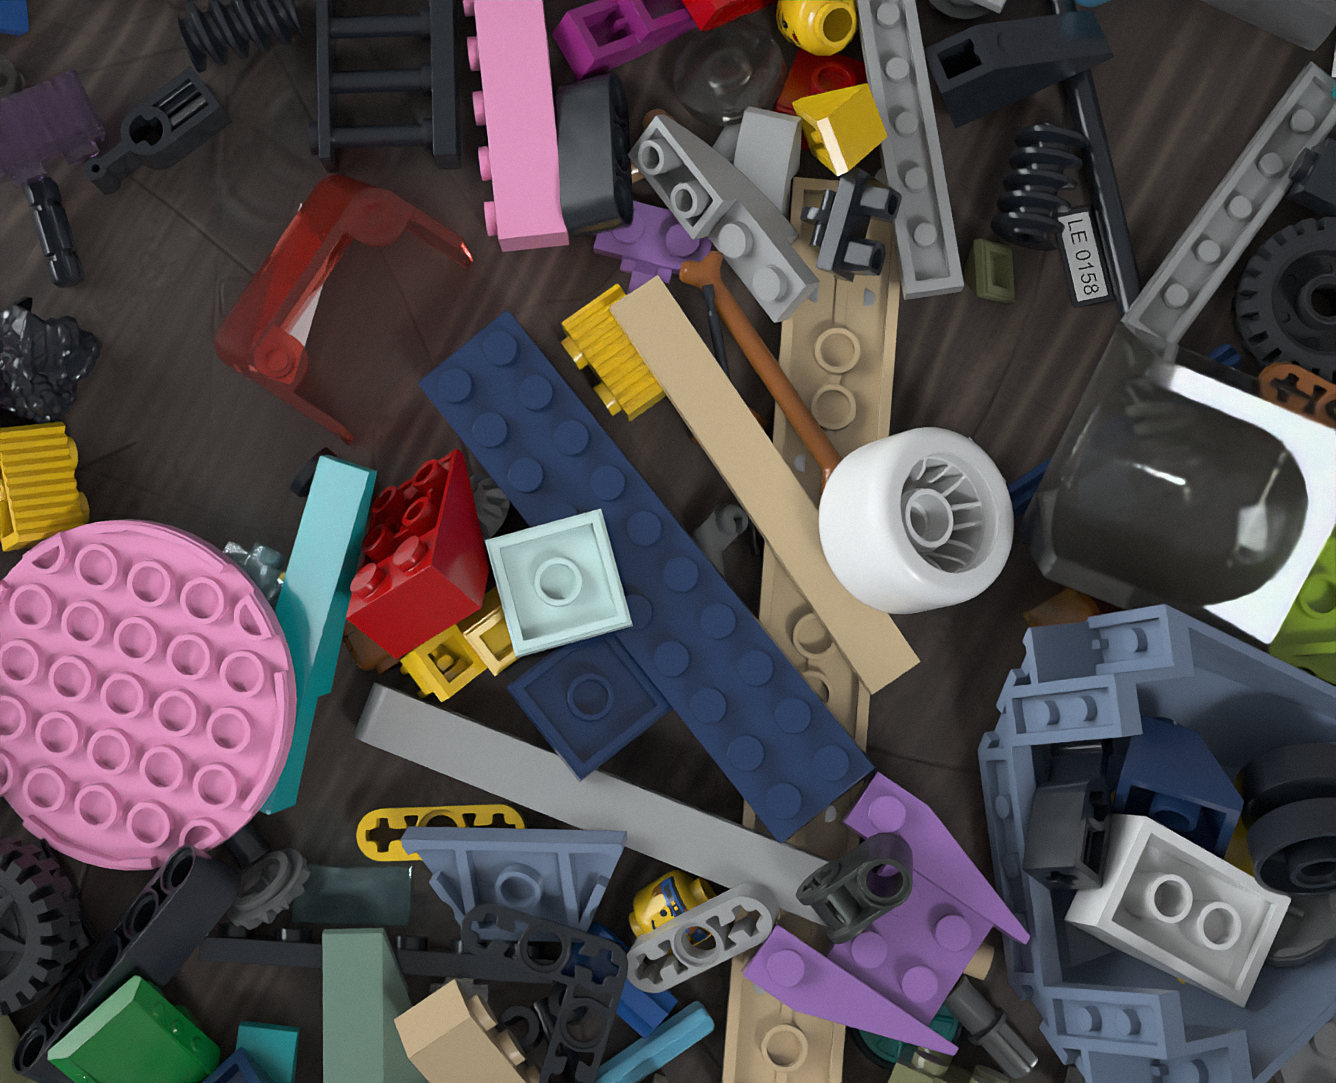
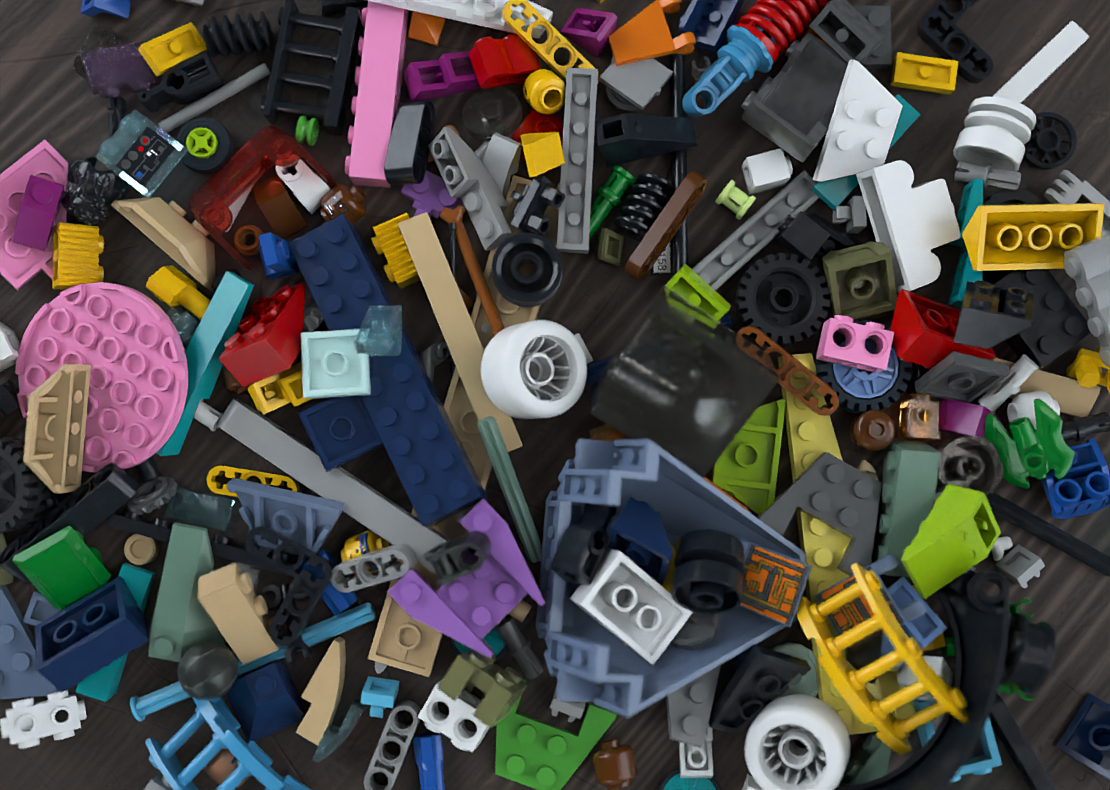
camera: 10 degrees right, 0 degrees up
(77, 801) = (58, 428): none -> tan wedge
(114, 273) = (141, 153): none -> slope
(129, 72) = (172, 48): none -> yellow plate
(199, 407) = (173, 234): none -> tan wedge
(205, 221) = (197, 136): none -> black wheel
(218, 146) = (214, 98): none -> light grey bar
(233, 507) = (177, 289): none -> yellow piece
(263, 990) = (141, 549): none -> tan tile
(329, 376) = (241, 237): none -> dark orange plate
(334, 724) = (207, 415): none -> white pin
(379, 319) = (279, 207): none -> reddish brown slope
(399, 412) = (277, 257): none -> blue plate
(401, 170) = (307, 130): none -> bright green bush
(422, 273) = (305, 185): none -> white piece
(494, 287) = (343, 200): none -> reddish brown head
(631, 507) = (381, 332): none -> clear light blue slope
(869, 306) = (527, 249): none -> black wheel
(914, 741) = (511, 488): none -> sand green axle
(973, 173) = (609, 197): none -> green pin
(1088, 212) = (666, 225): none -> reddish brown beam
(1173, 320) = (698, 292): none -> lime slope
(1199, 140) = (735, 199): none -> yellowish green bush
(1244, 77) = (767, 171): none -> white brick

